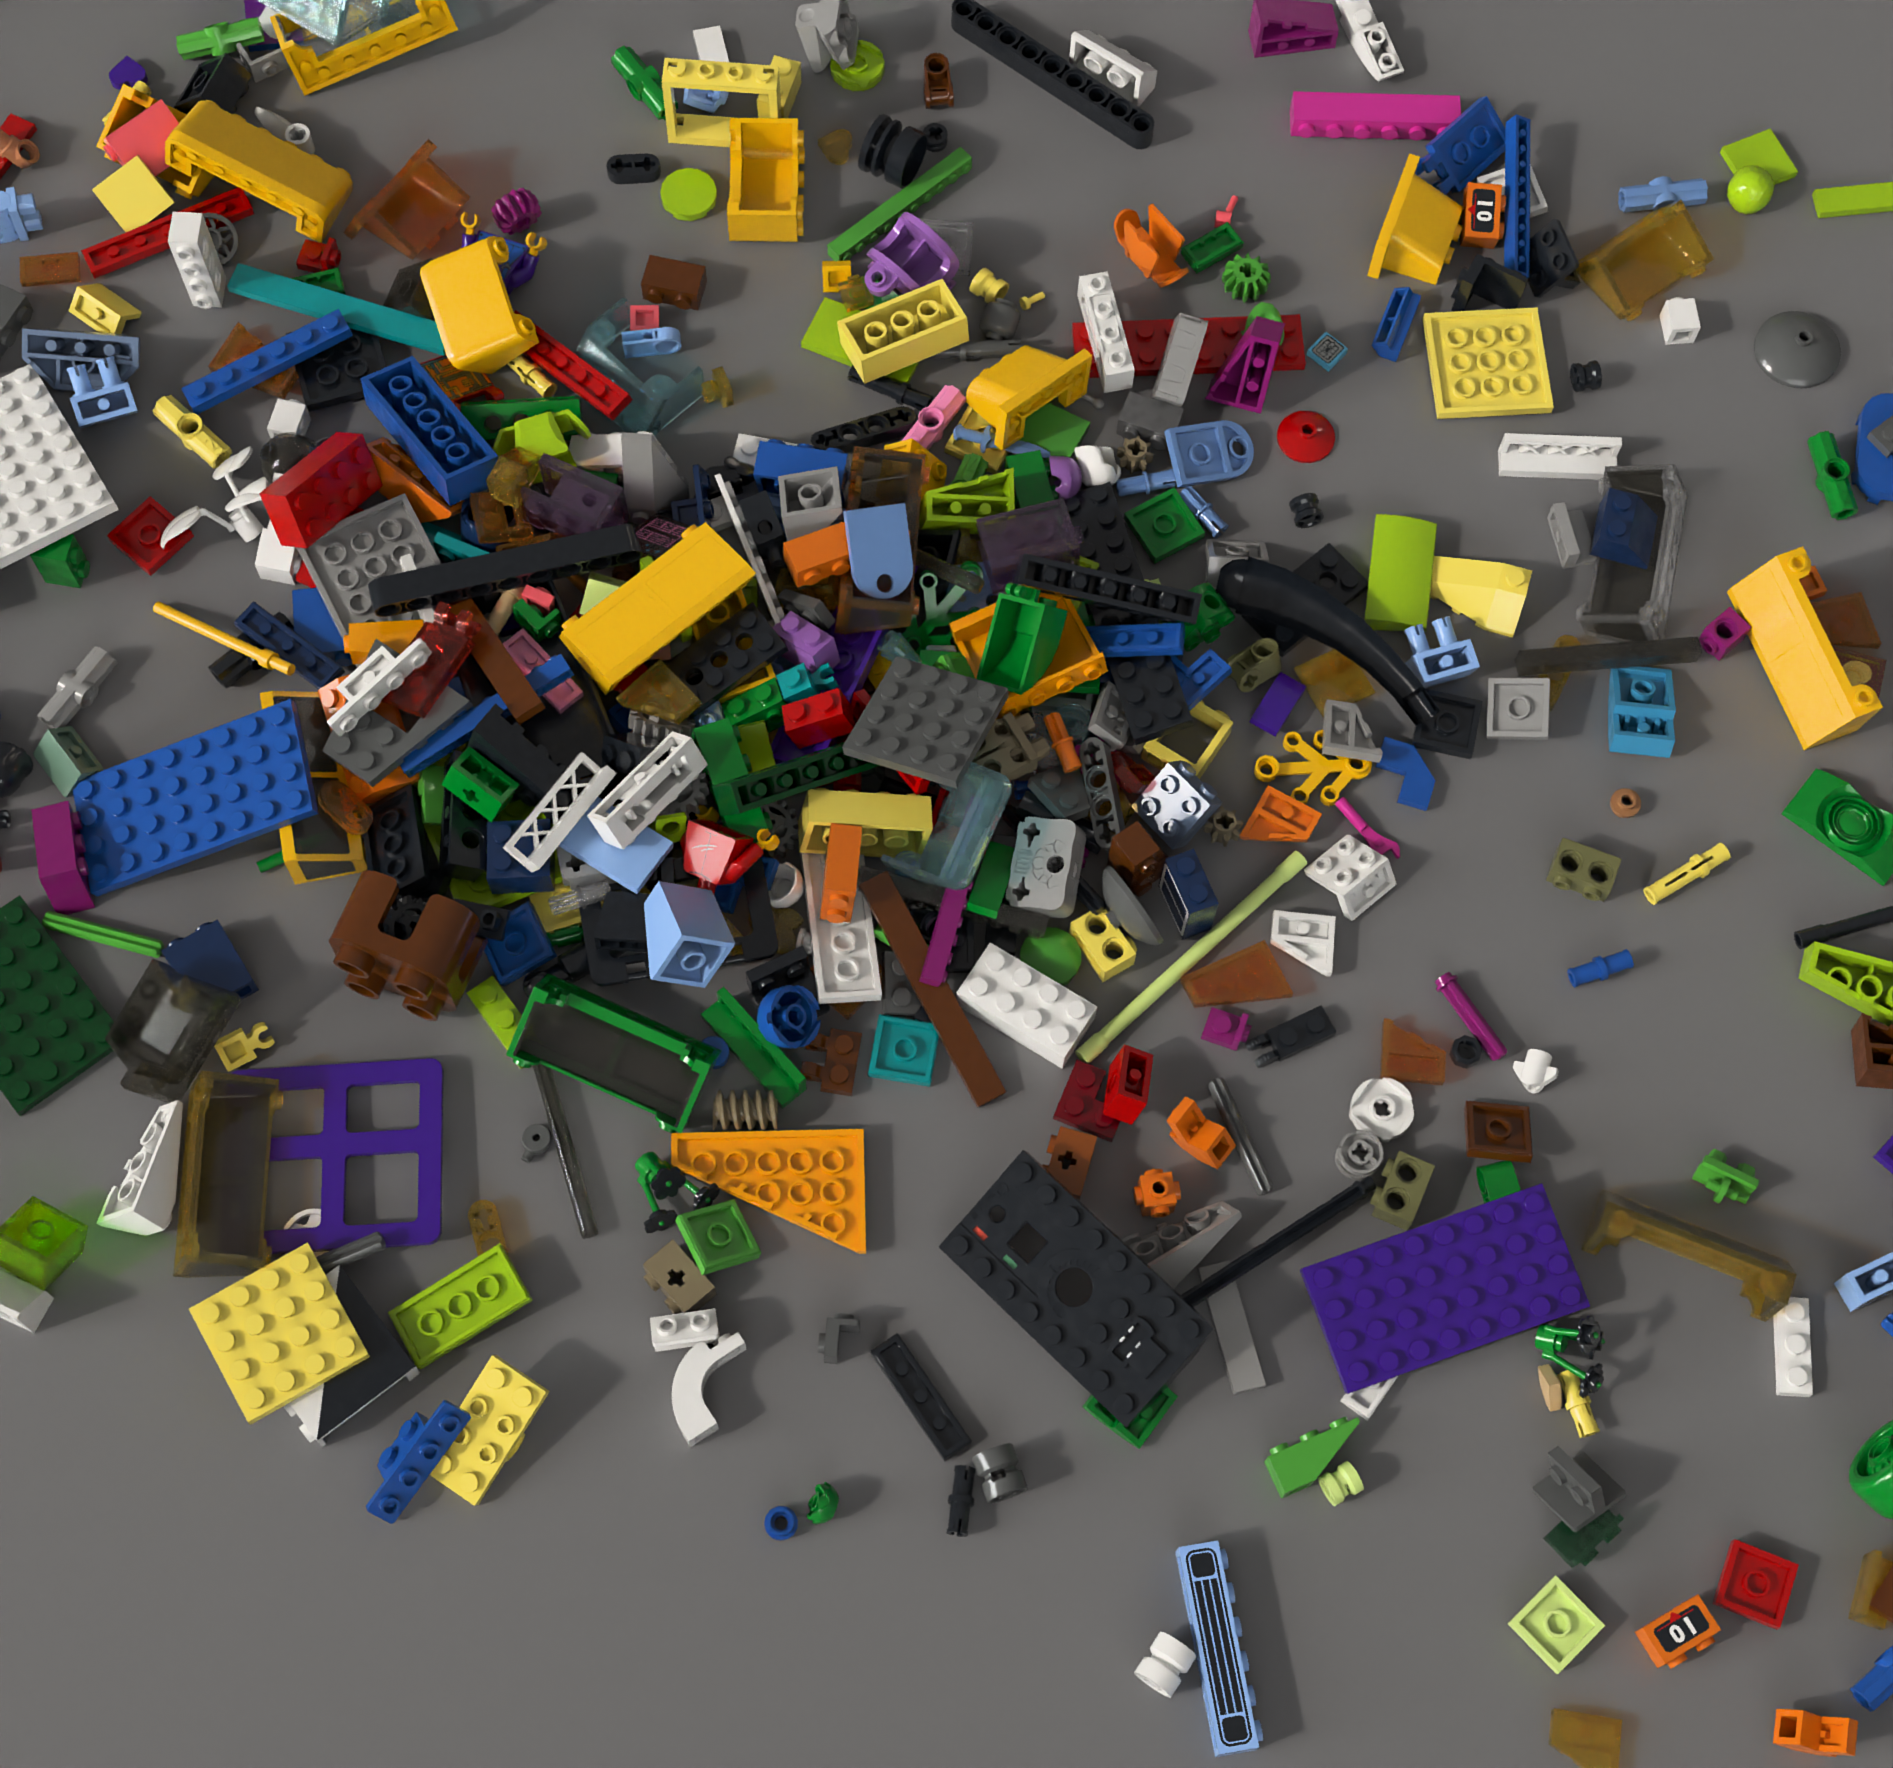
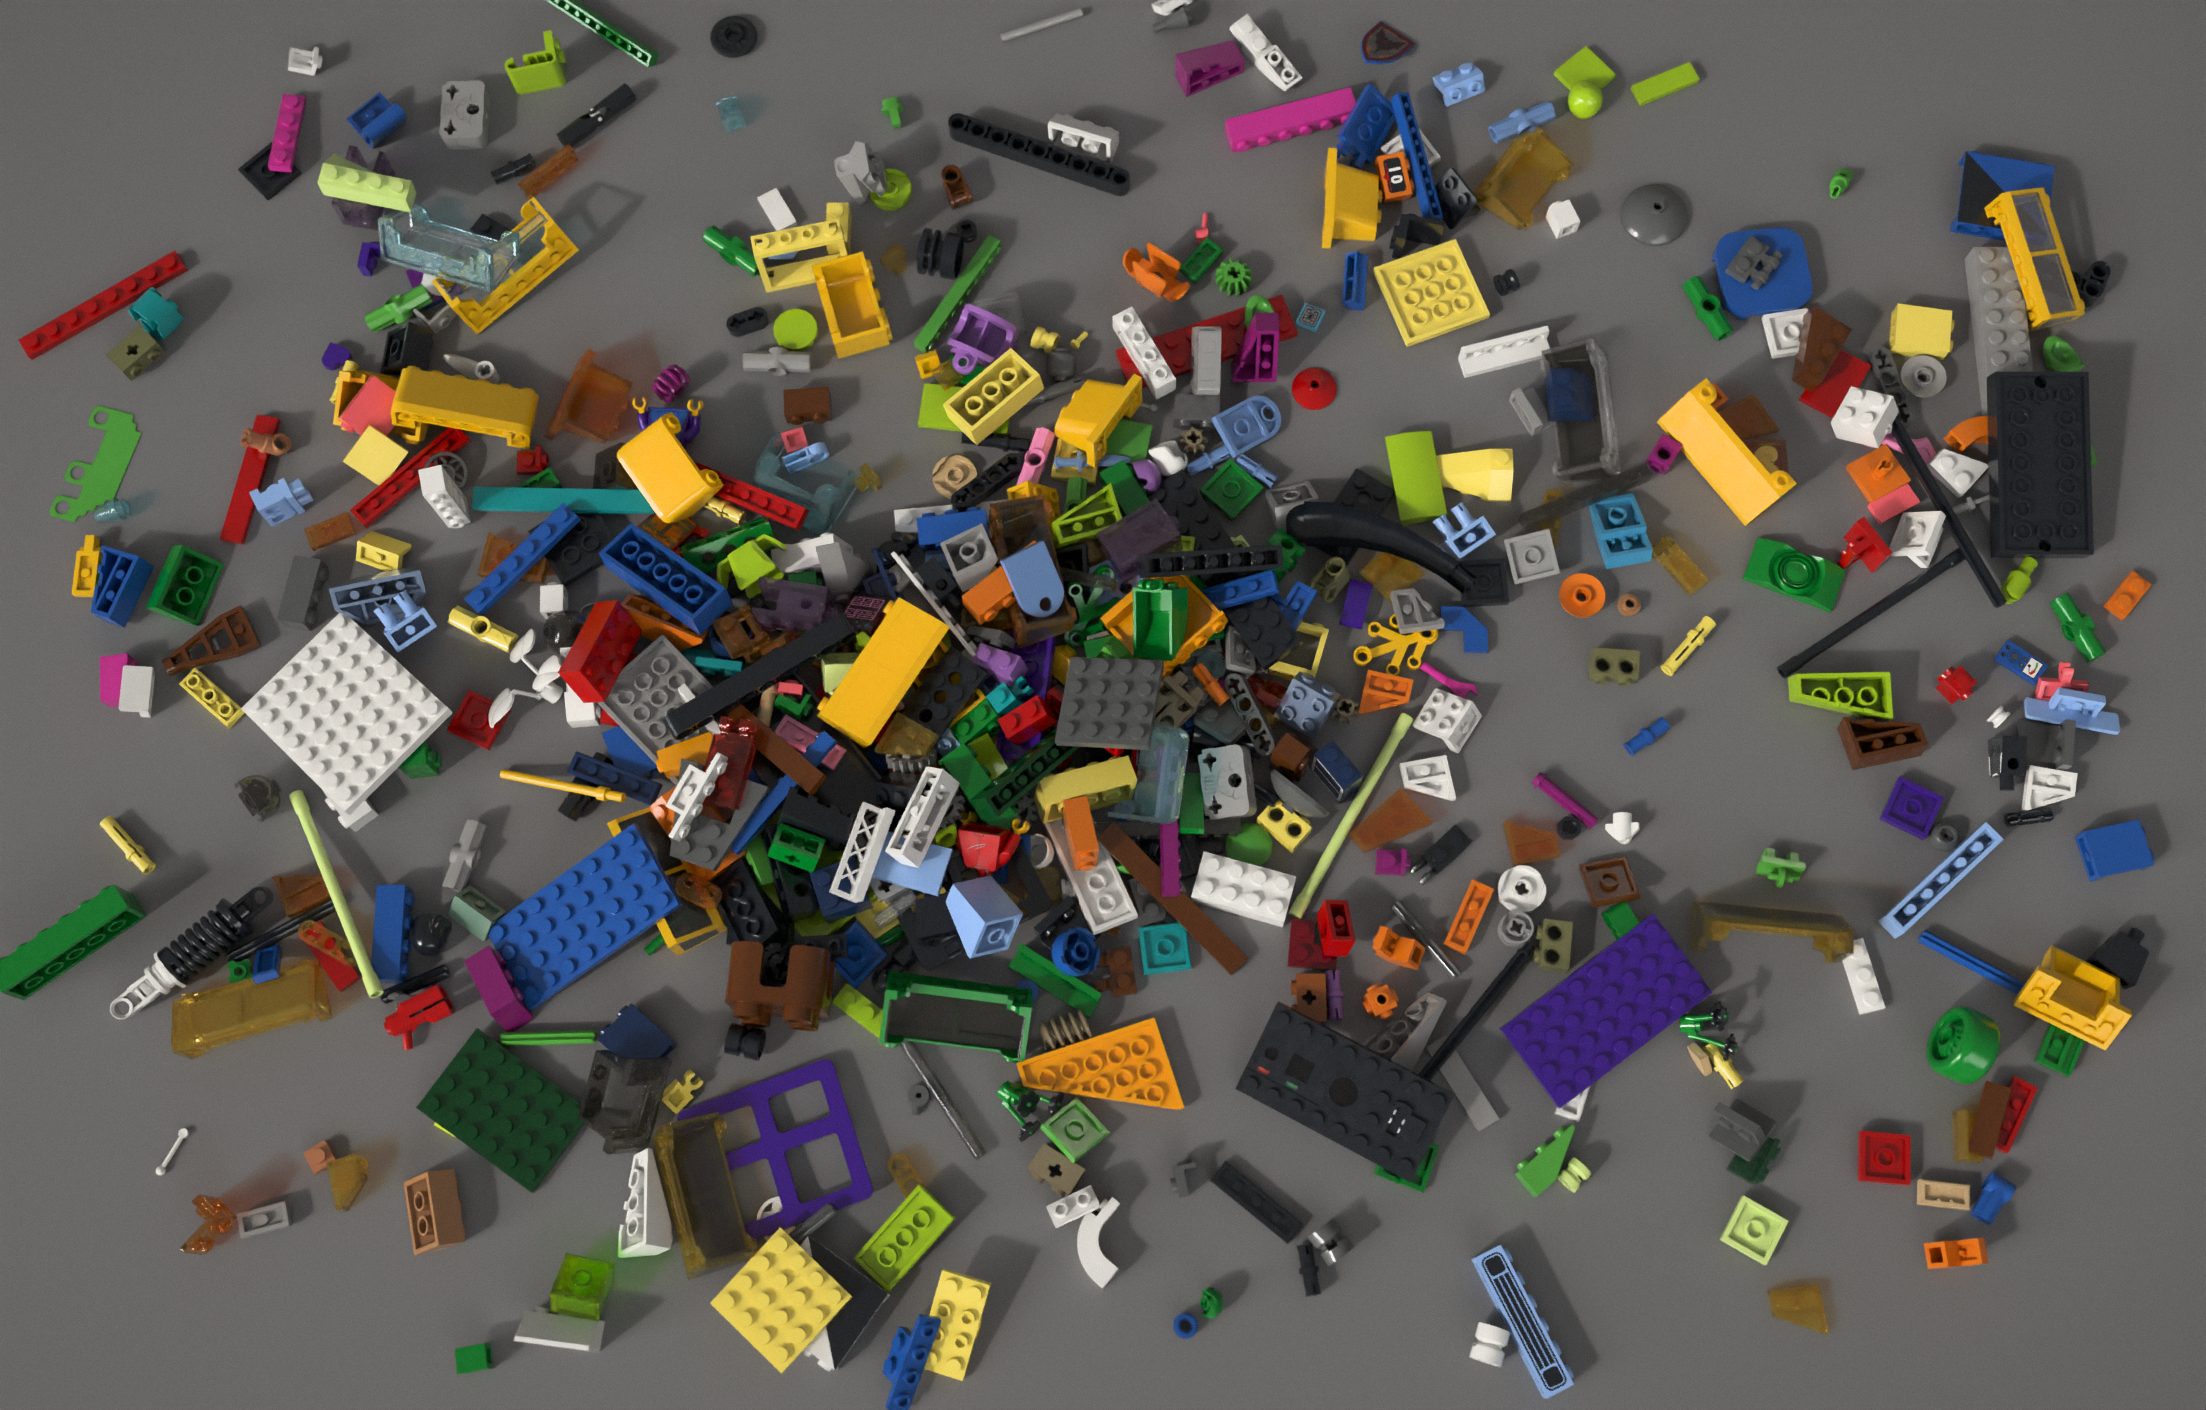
camera: 10 degrees left, 5 degrees up
(339, 1006) = (745, 1041): none -> black wheel
(511, 473) = (742, 599): clear yellow slope -> none
(654, 222) = (777, 361): none -> light grey piece
(824, 410) = (952, 474): none -> tan tile
(894, 645) = (1066, 647): clear light blue cone -> none
(1101, 1169) = (1334, 995): none -> medium lavender pin
(1303, 1123) = (1468, 916): none -> orange plate
(1306, 510) = (1332, 448): black wheel -> none
(1518, 60) = (1384, 45): none -> shield
(1574, 763) = (1583, 585): none -> orange dish
(1599, 130) = (1459, 83): none -> light blue bracket
(1677, 1632) = (1840, 1209): brick -> none
(1704, 773) = (1679, 565): none -> clear yellow plate
(1821, 1654) = (1943, 1194): none -> tan plate

